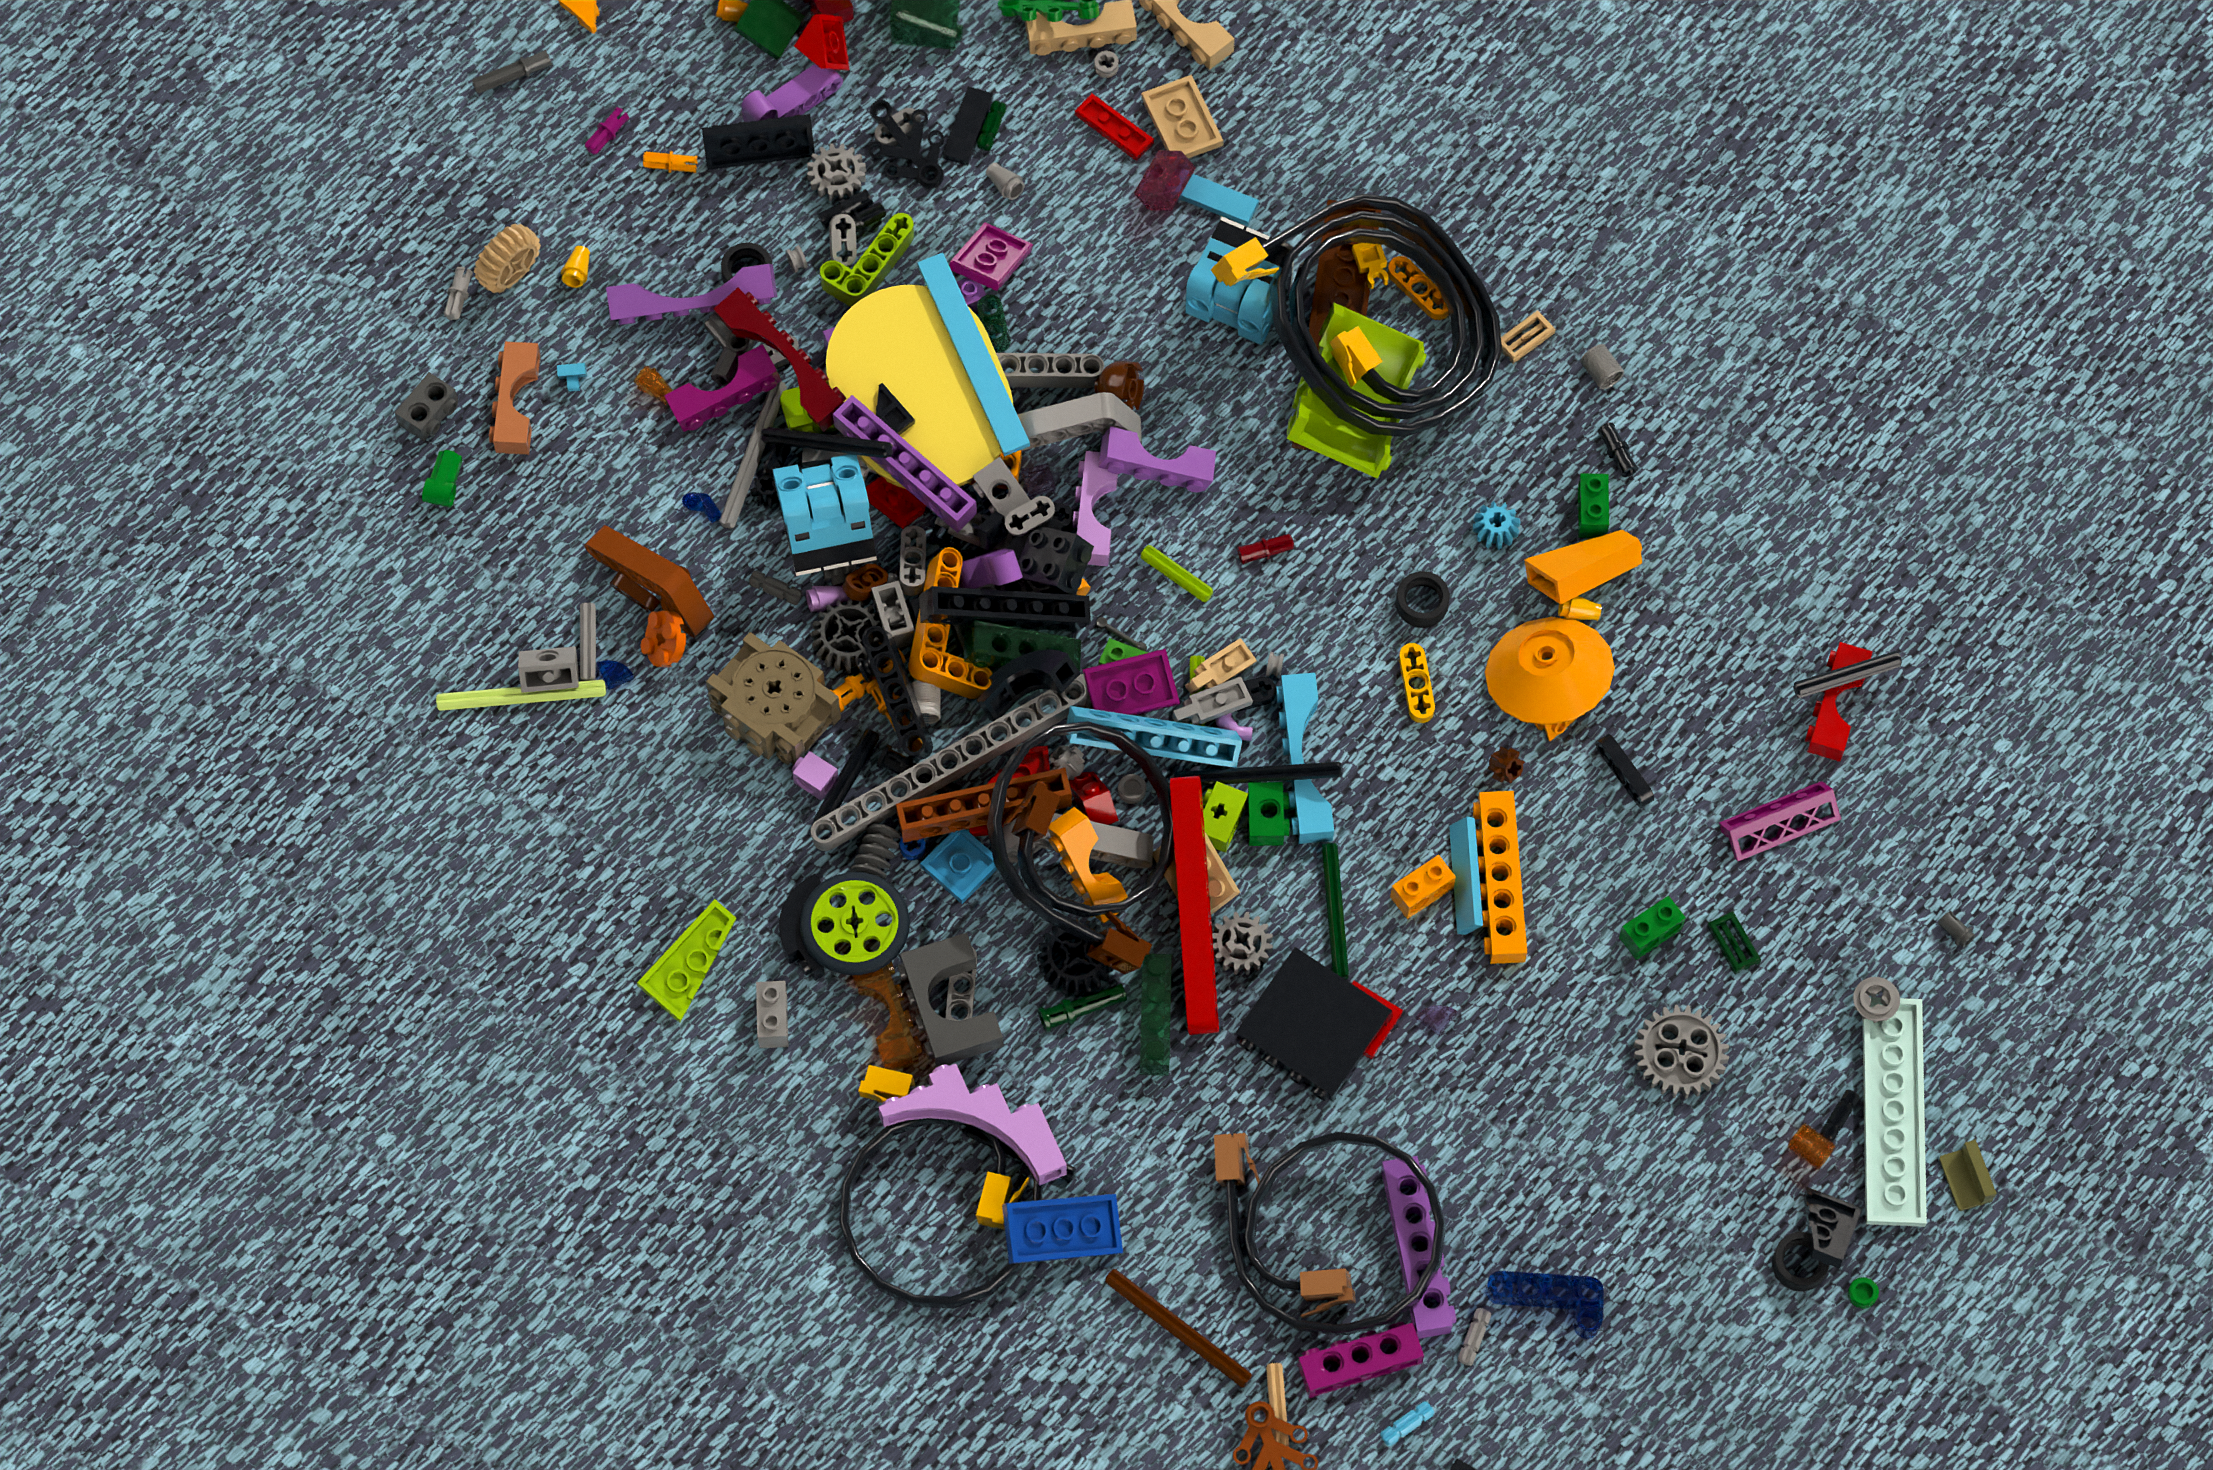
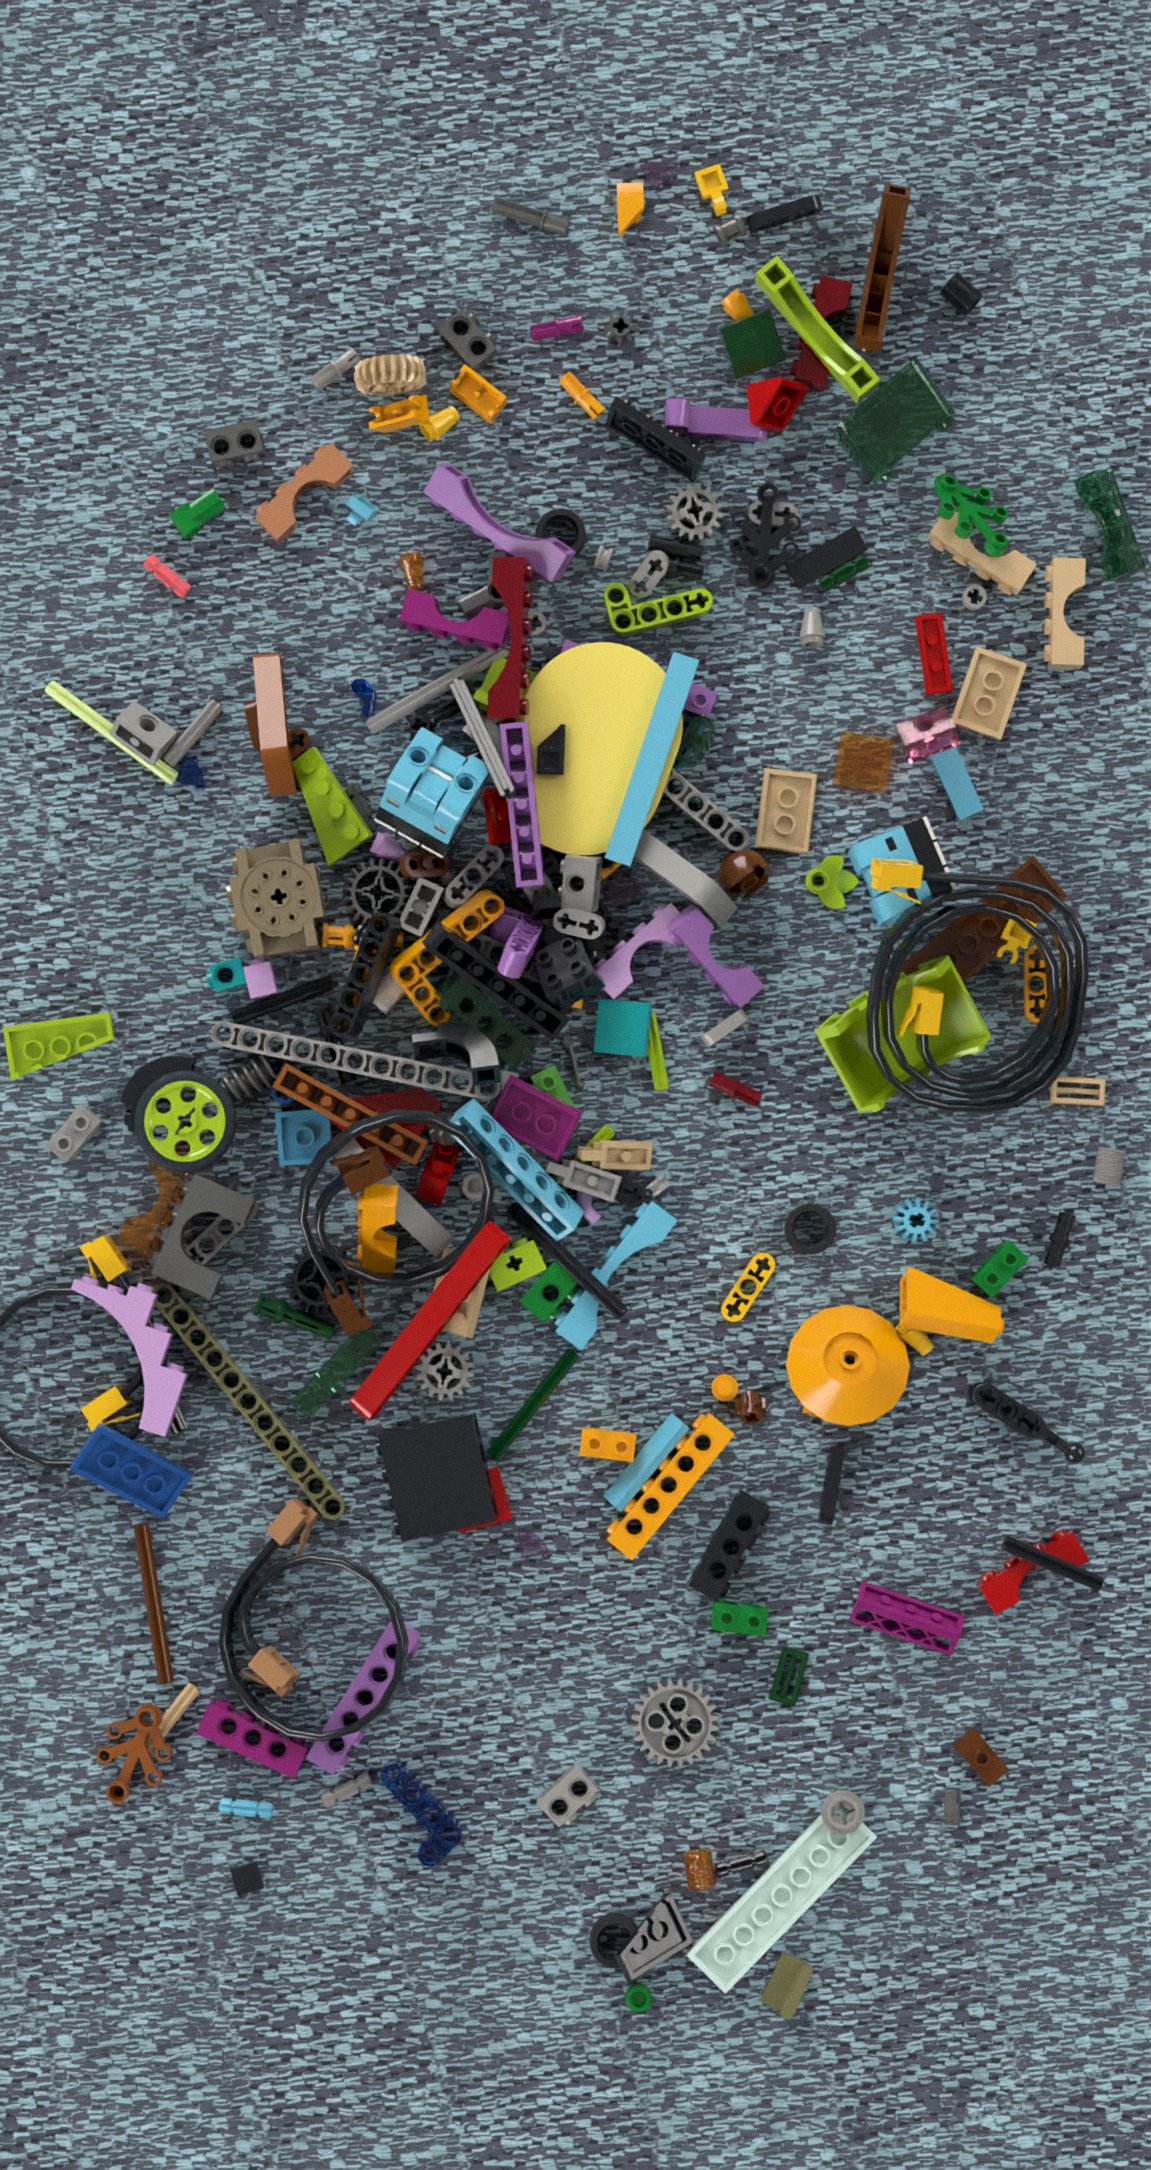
camera: 40 degrees right, 20 degrees up
(459, 545) = (166, 576): none -> coral axle
(541, 281) = (400, 414): none -> light orange hinge
(543, 199) = (463, 344): none -> dark grey brick
(588, 222) = (478, 394): none -> light orange hinge
(656, 92) = (620, 337): none -> dark grey gear
(663, 638) = (242, 782): orange plate -> none
(755, 607) = (331, 810): none -> lime wing
(785, 782) = (238, 980): none -> teal brick
(990, 256) = (742, 684): magenta tile -> none
(1109, 322) = (786, 811): none -> tan tile
(1122, 1096) = (261, 1407): none -> olive beam
(1135, 240) = (863, 762): none -> clear orange plate
(1135, 573) = (623, 1027): none -> teal tile
(1196, 341) = (835, 882): none -> lime plate
(1214, 510) = (724, 1028): none -> light grey beam
(1472, 770) = (724, 1387): none -> light orange plate
(1595, 924) = (718, 1586): none -> black brick
(1648, 1180) = (562, 1790): none -> light grey brick
(1746, 590) = (1073, 1452): none -> black piece
(1939, 874) = (981, 1757): none -> reddish brown plate

